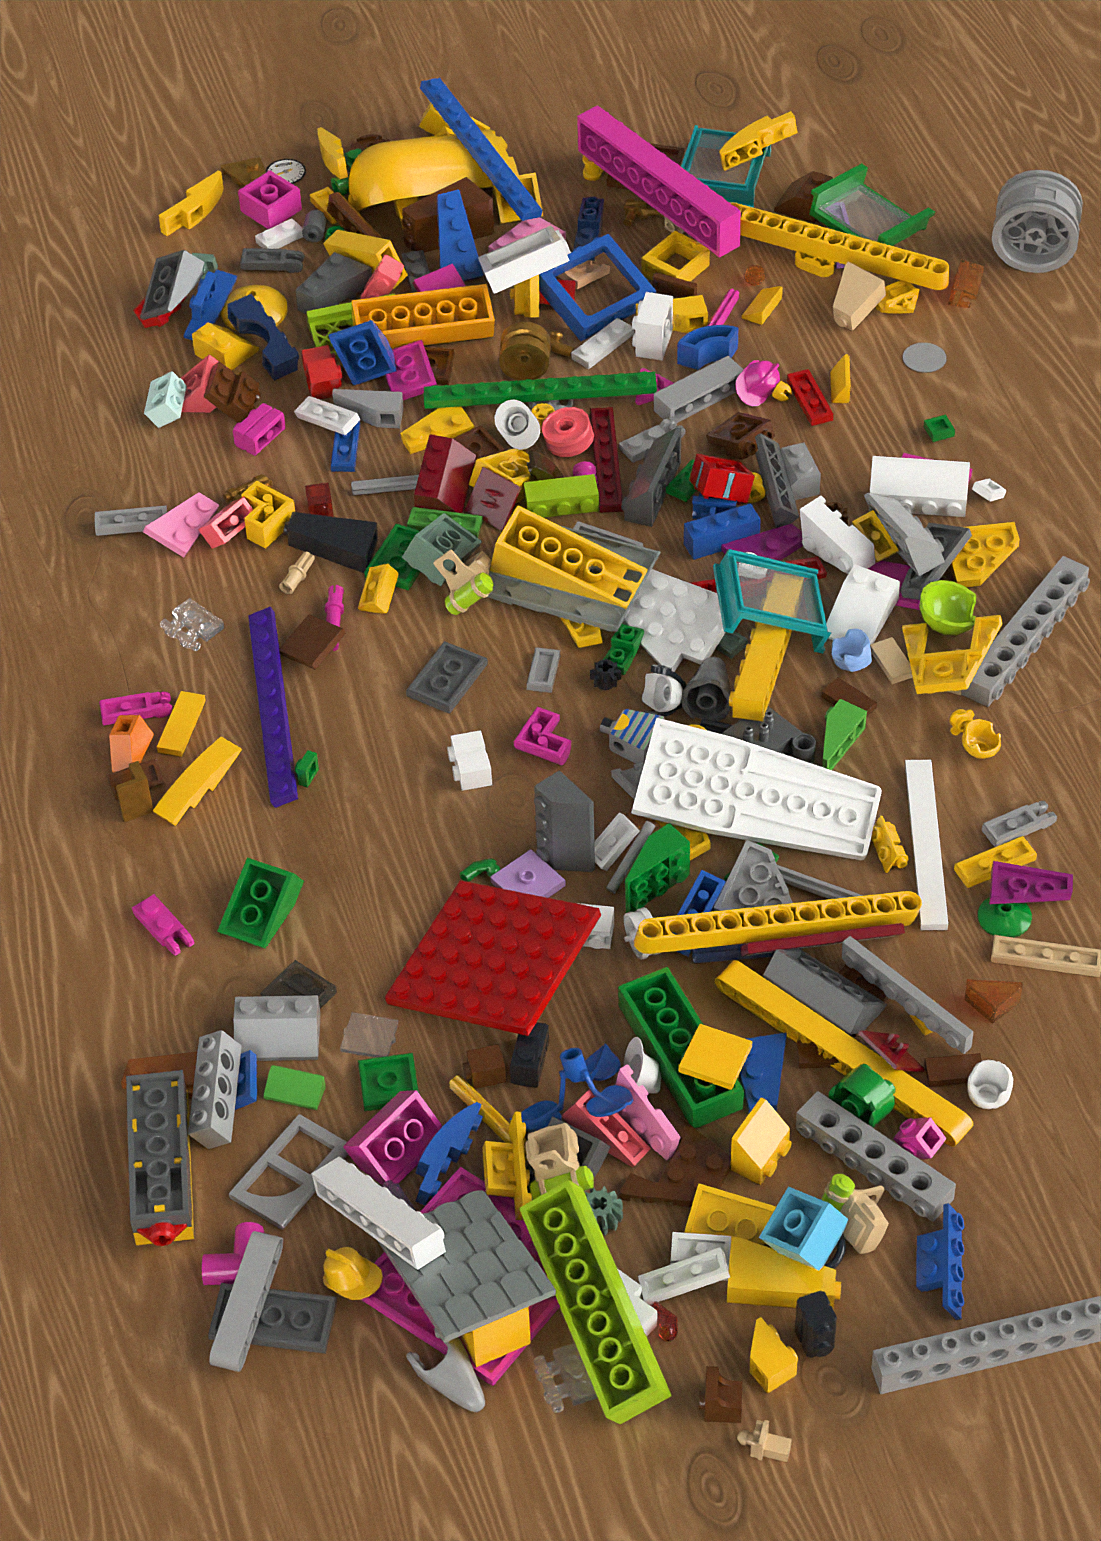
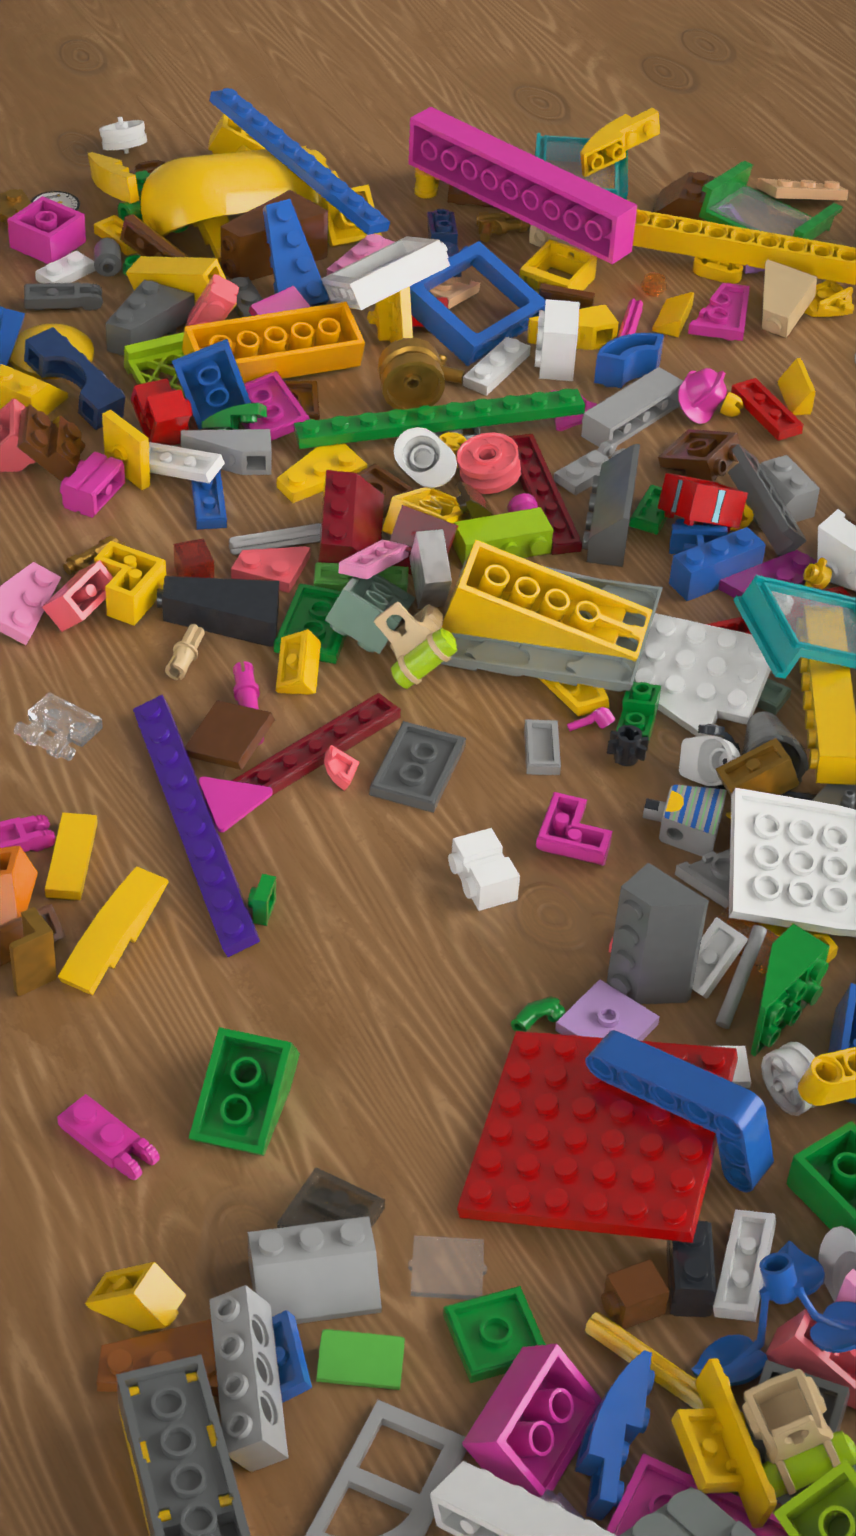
camera: 15 degrees left, 5 degrees down
(158, 1031) = (137, 1297): none -> yellow slope
(288, 402) = (129, 445): none -> yellow plate
(302, 692) = (231, 800): none -> dark pink piece
(352, 110) = (123, 135): none -> white wheel
(374, 658) = (310, 751): none -> dark red tile
(377, 379) = (229, 418): none -> green slope
(379, 507) = (272, 565): none -> coral wing
(388, 673) = (340, 767): none -> coral tile
(451, 510) = (373, 559): none -> bright pink tile
(491, 519) = (430, 568): none -> flat silver piece
(558, 941) = (695, 1095): none -> blue beam
(579, 1035) = (740, 1274): none -> white plate
(594, 650) = (601, 715): none -> dark pink hand
(689, 706) = (760, 770): none -> pearl gold panel
(797, 547) = (817, 574): none -> yellow plate
(805, 307) = (724, 314): none -> dark pink wing
(910, 190) = (802, 190): none -> light nougat wing

